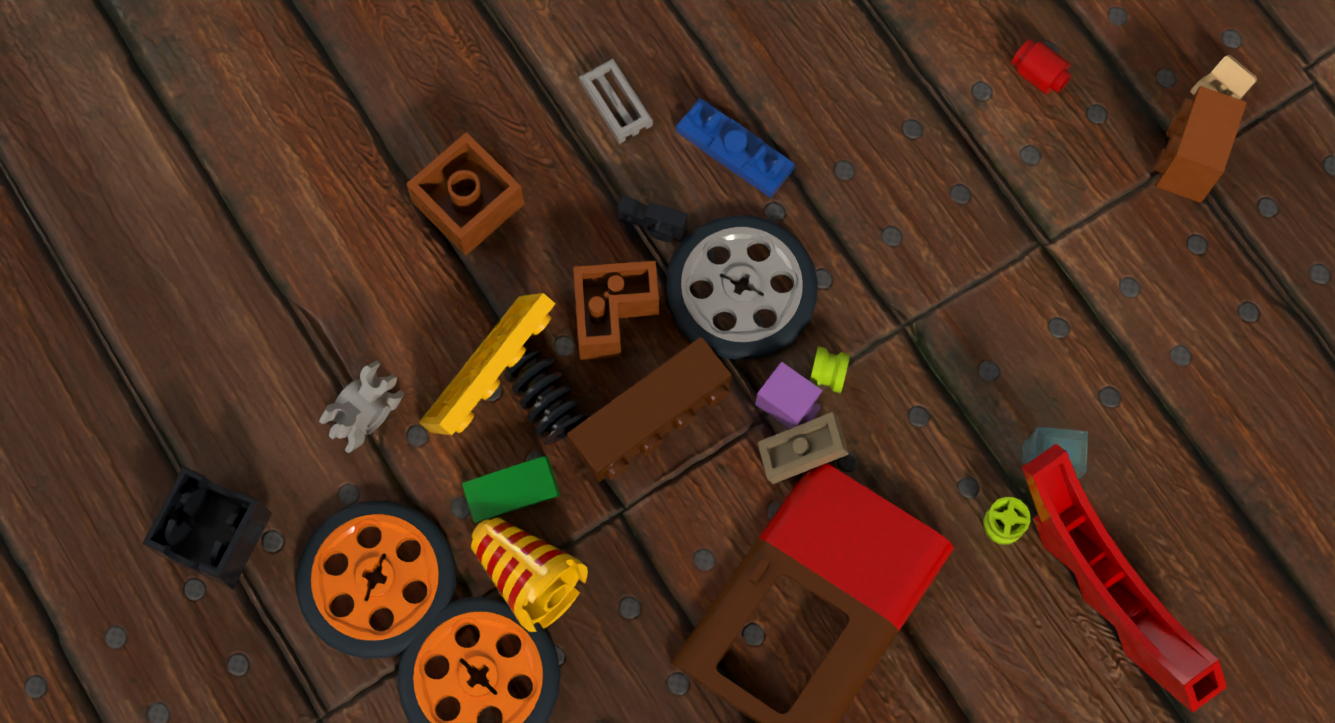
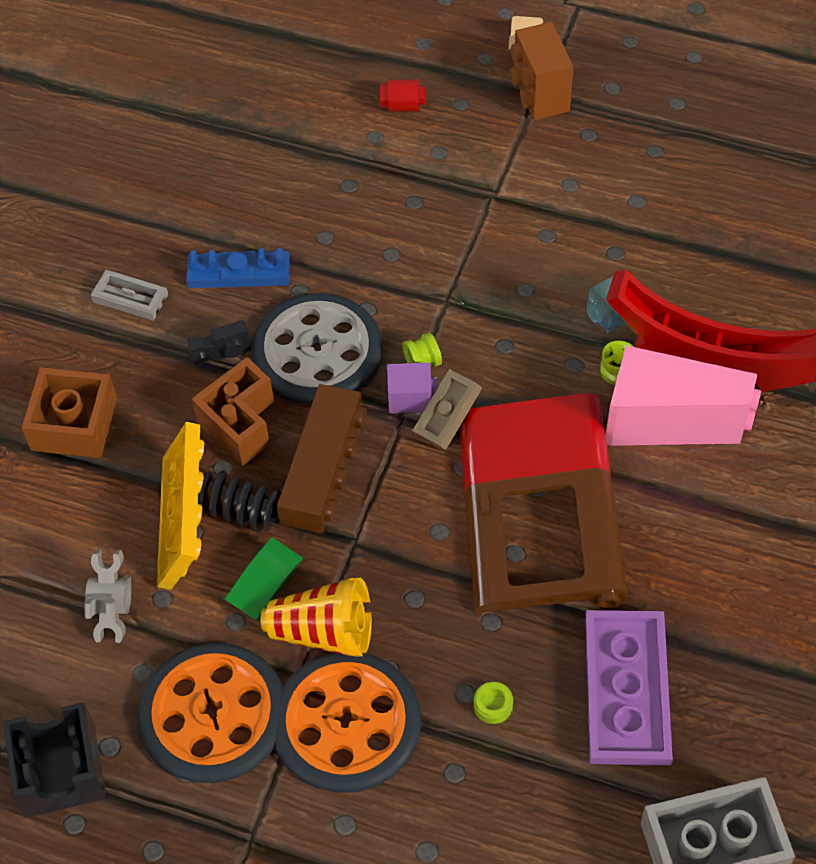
camera: 35 degrees left, 15 degrees down
(1020, 610) = (679, 401): none -> bright pink slope

